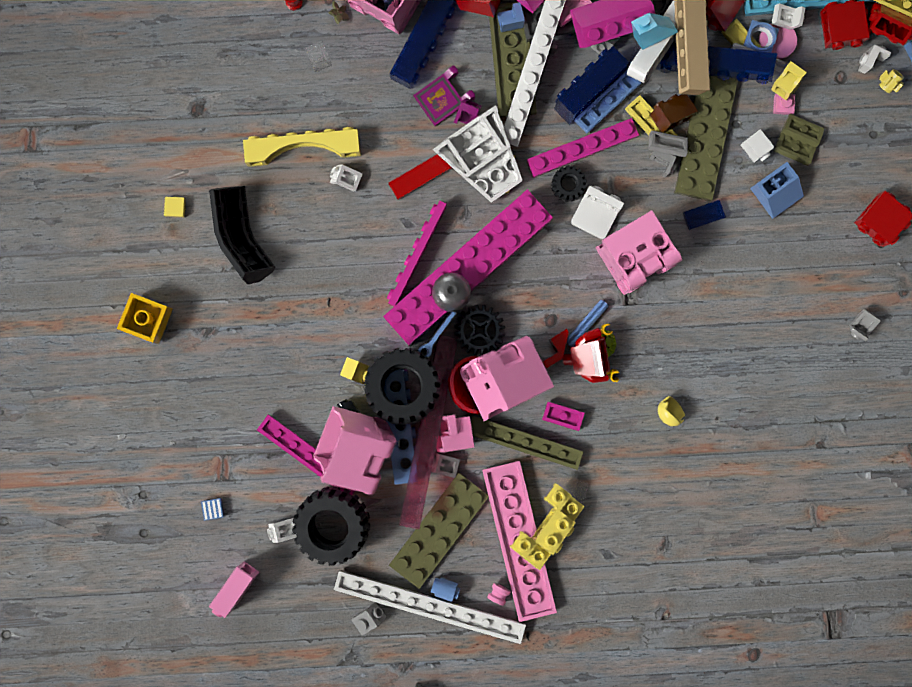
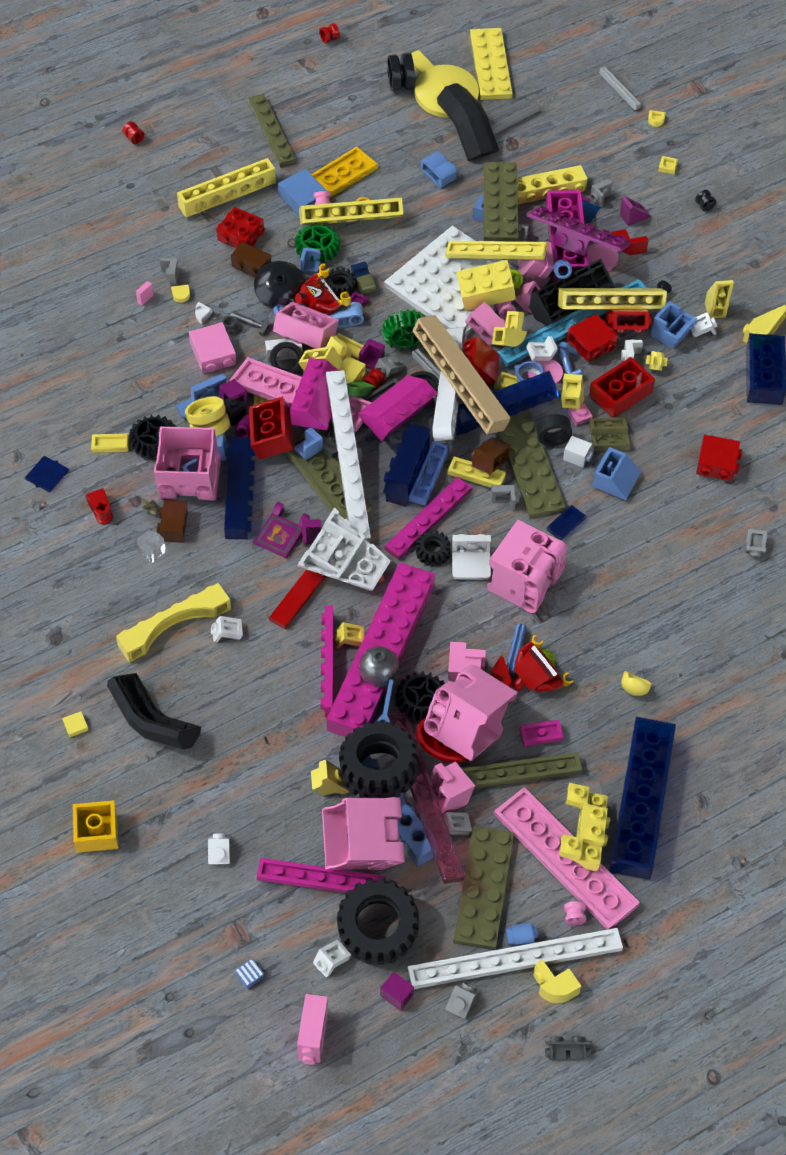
camera: 25 degrees left, 30 degrees down
(239, 387) = (219, 849): none -> white bracket
(319, 588) = (397, 991): none -> magenta panel
(350, 39) = (173, 521): none -> reddish brown brick
(448, 237) = (348, 634): none -> light yellow bracket
(449, 650) = (557, 988): none -> light yellow brick
(531, 322) = (461, 658): none -> bright pink plate
(613, 523) = (642, 798): none -> clear blue brick
(652, 29) = (434, 397): medium azure slope -> none
(668, 143) = (500, 478): light grey tile -> none
(747, 113) = (552, 422): none -> black tyre
(808, 24) = (562, 349): none -> medium blue piece
(840, 96) = (621, 387): none -> red brick

